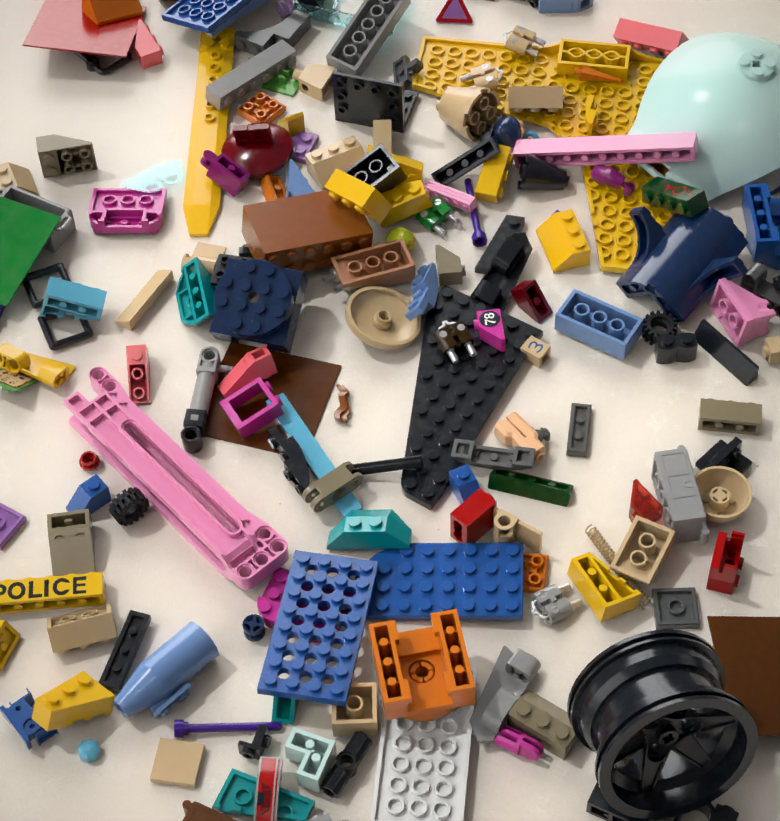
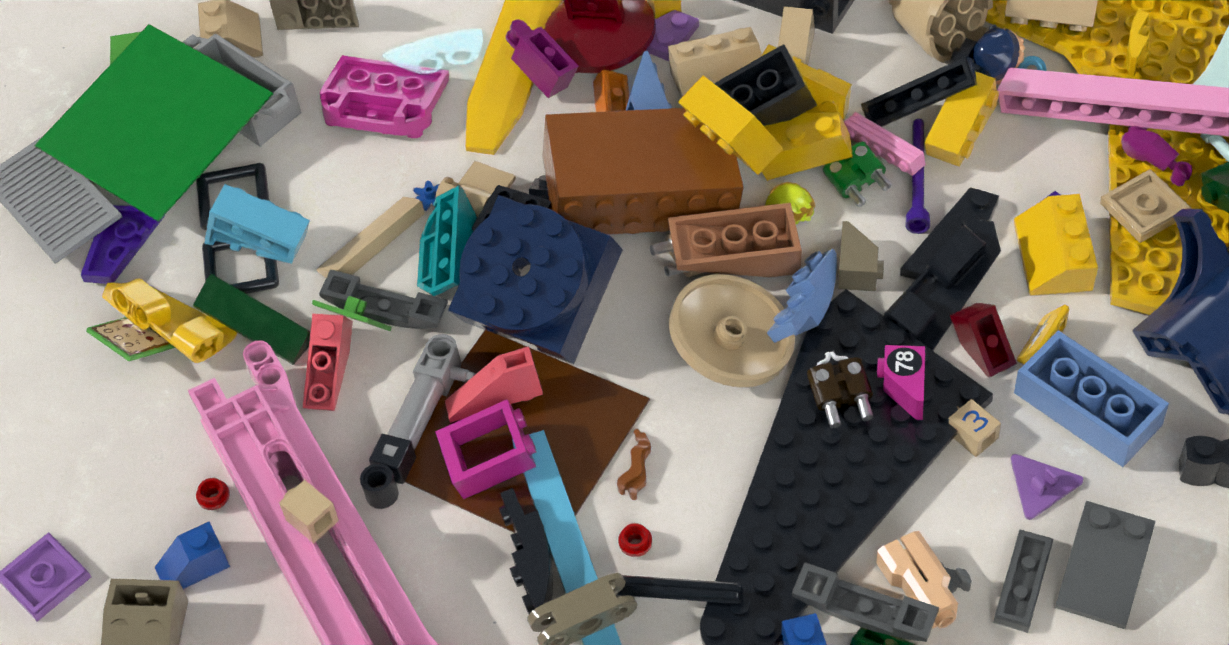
camera: 15 degrees right, 0 degrees up
(83, 355) = (252, 319): none -> dark green slope
(129, 506) = (246, 586): black tyre -> none
(149, 340) = (353, 309): none -> bright green piece
(161, 454) = (308, 511): none -> tan brick
(163, 337) = (384, 306): none -> dark grey slope
(174, 265) = (426, 194): none -> blue plant
(352, 440) = (632, 532): none -> red plate
(540, 175) = (1038, 130): black cone -> none
(567, 288) = (1046, 328): none -> yellow slope
(579, 377) = (1041, 484): none -> medium lavender piece
(610, 210) = (1143, 205): none -> tan tile
(622, 413) = (1105, 564): none -> dark grey slope
(658, 320) = (1198, 406): black tyre -> none

